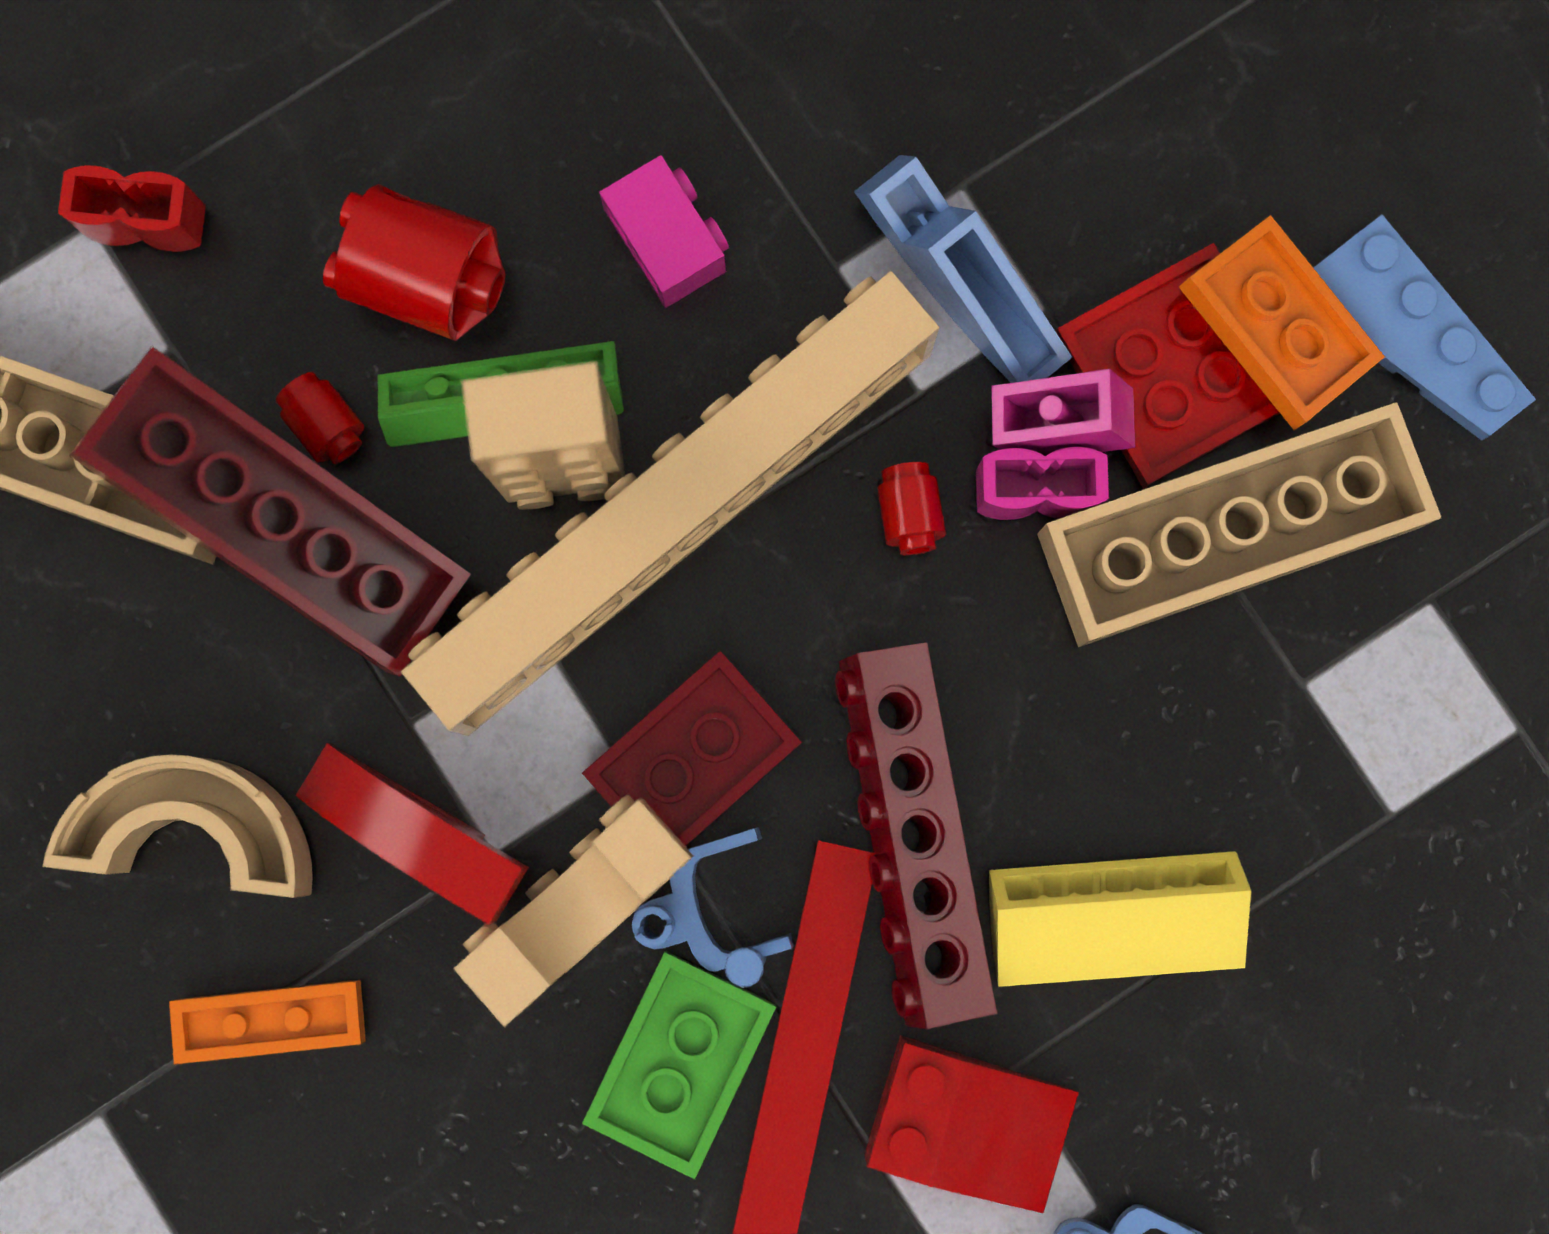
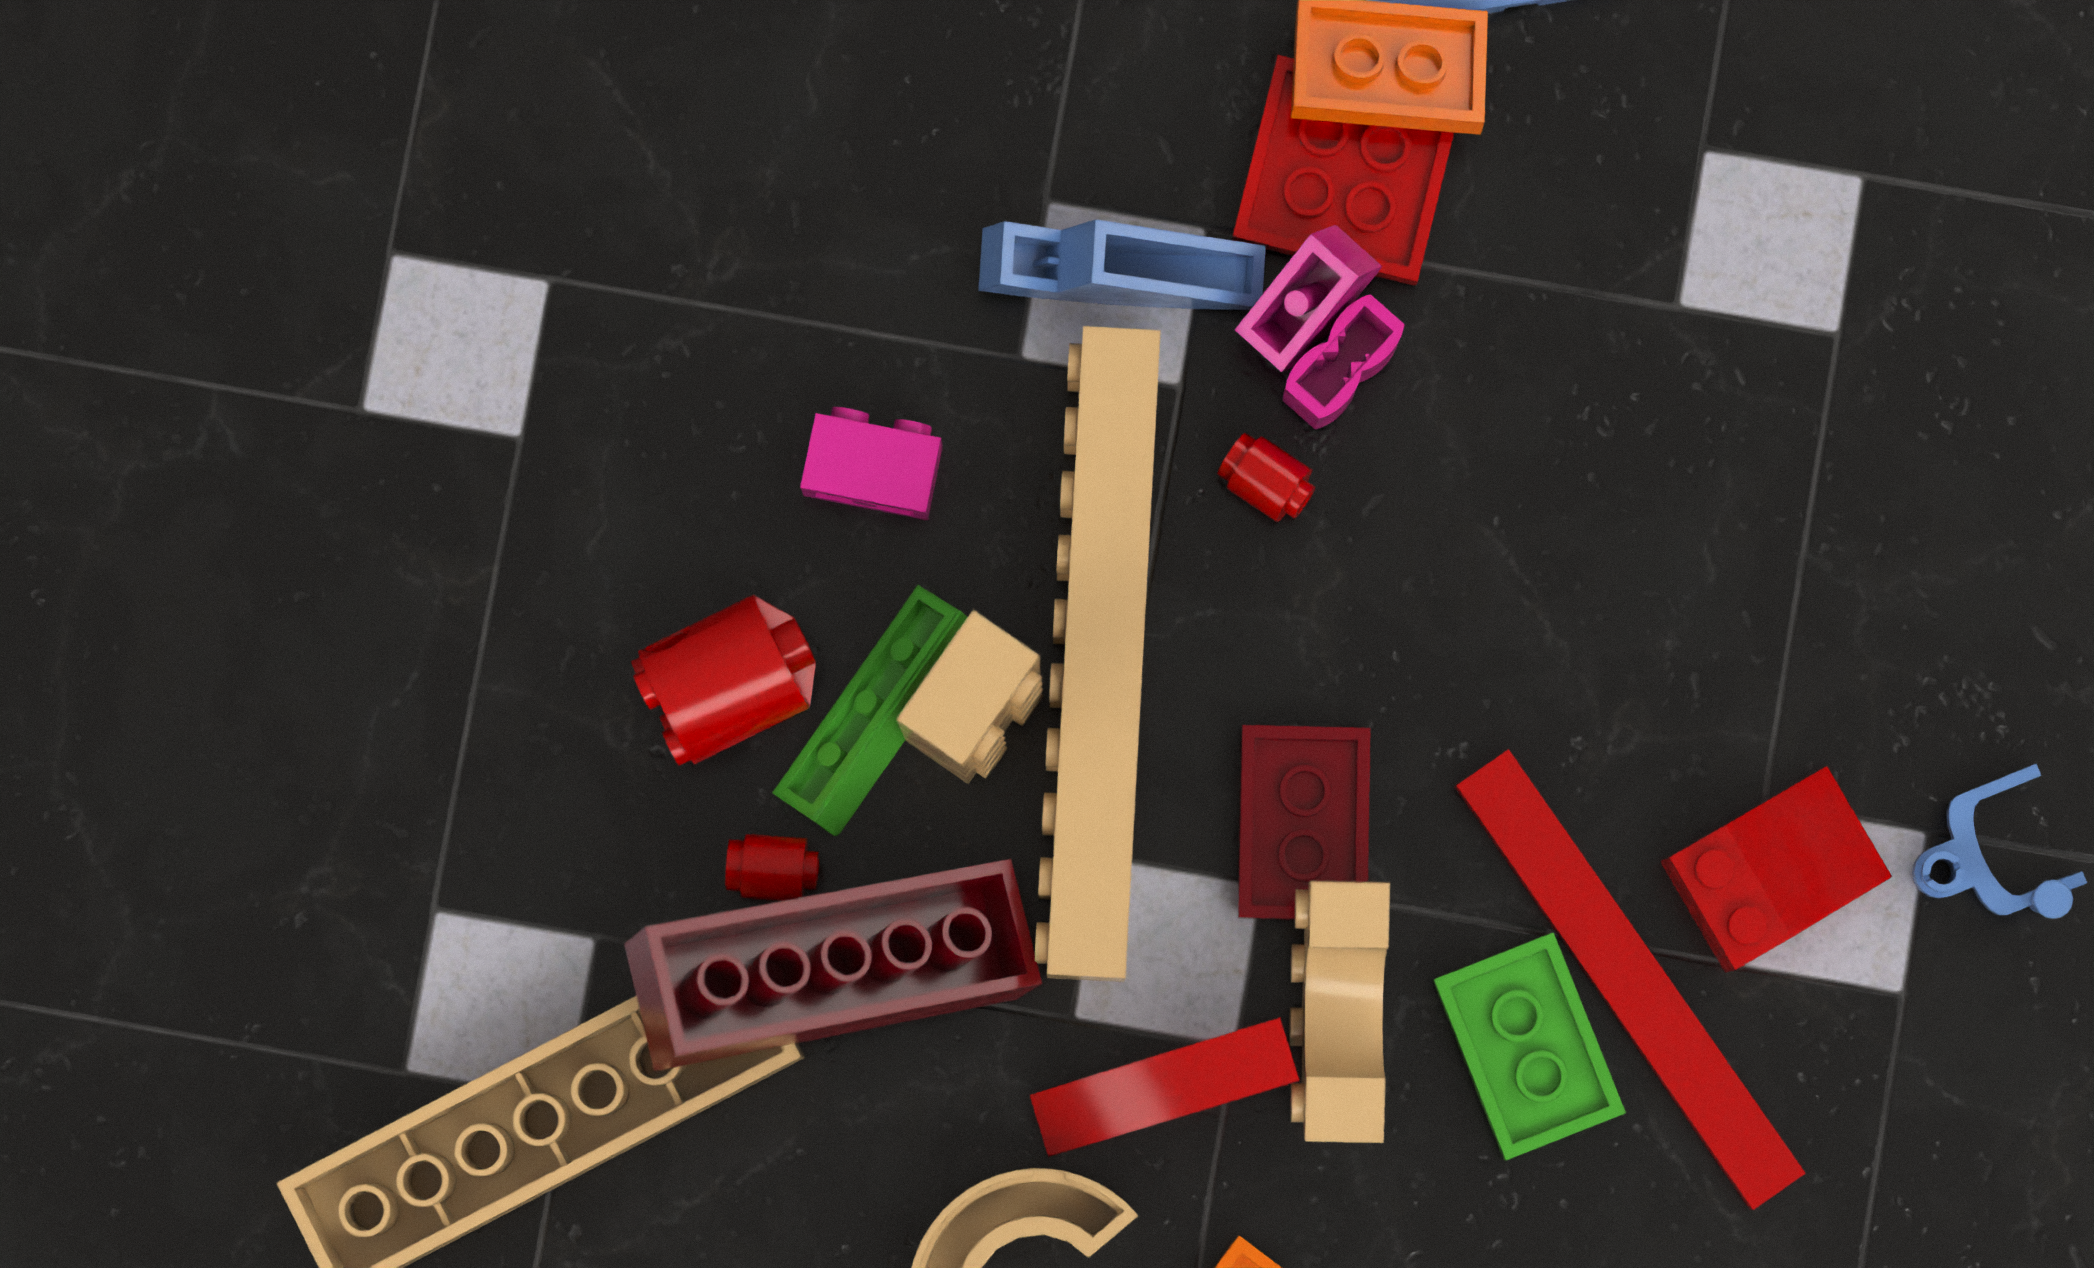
camera: 45 degrees left, 0 degrees up
(132, 208) = (456, 873): red brick -> none
(687, 923) = (1425, 944): medium blue piece -> none
(952, 922) = (1556, 707): dark red brick -> none
(1119, 918) = (1724, 613): light yellow brick -> none
(1238, 524) = (1512, 245): tan brick -> none

